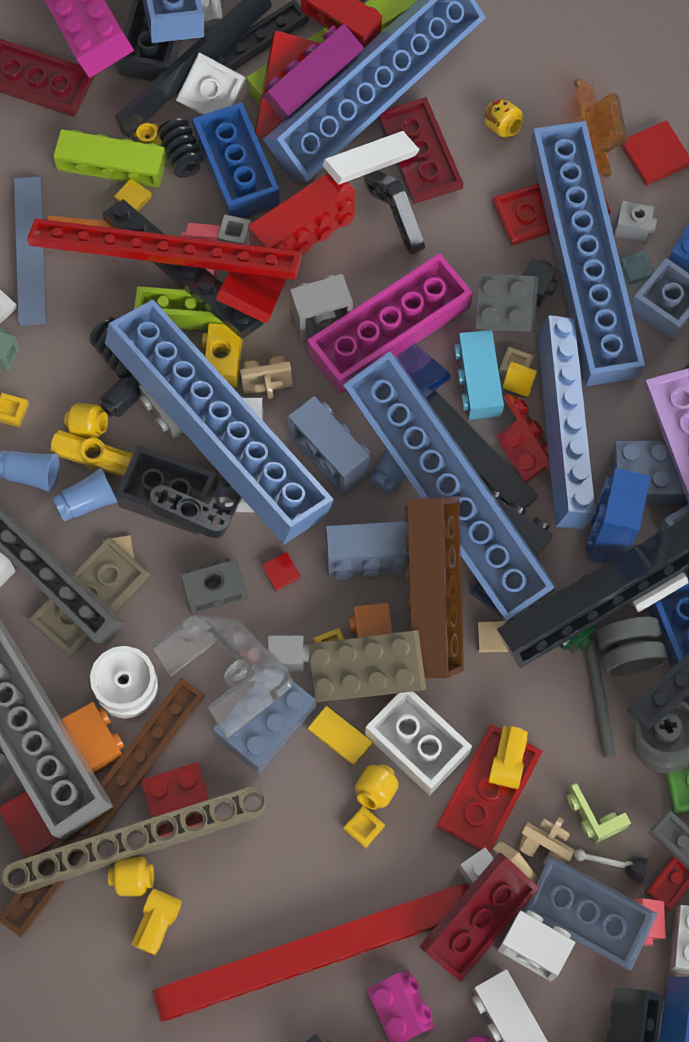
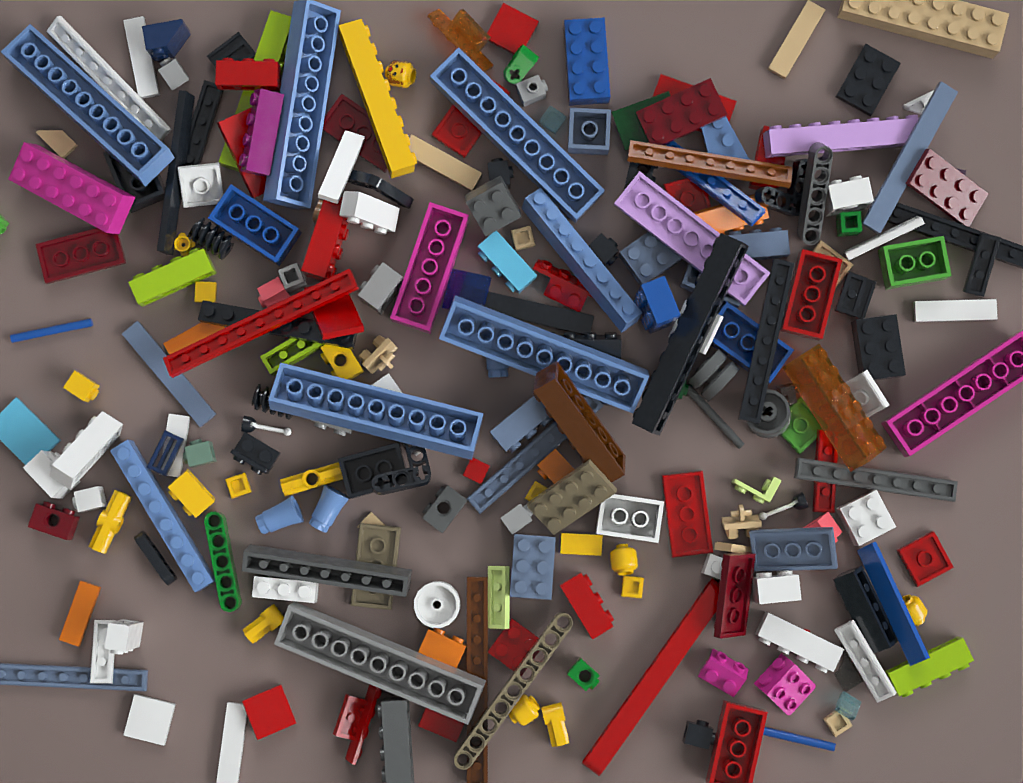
camera: 35 degrees left, 15 degrees up
(54, 387) = (255, 453): none -> black bracket
(71, 355) = (249, 425): none -> hinge
(86, 420) = (291, 461): yellow head -> none
(120, 397) = (300, 431): black brick -> none
(194, 731) = (498, 597): none -> yellowish green plate
(230, 873) = (575, 670): none -> green brick
(253, 679) = (516, 549): clear windscreen -> none
(295, 808) = (587, 605): none -> red brick
(329, 445) = (451, 374): sand blue brick -> none
(338, 598) = (521, 463): none -> sand blue tile
(366, 220) = (369, 212): none -> white brick
(459, 124) = (376, 98): none -> yellow brick
(482, 231) = (444, 163): none -> tan tile
(489, 638) = (624, 423): tan tile -> none
(508, 764) = (689, 494): yellow piece -> none
(519, 379) = (533, 248): yellow tile -> none
(601, 432) = (605, 249): none -> black brick
(644, 187) = (521, 61): none -> green piece

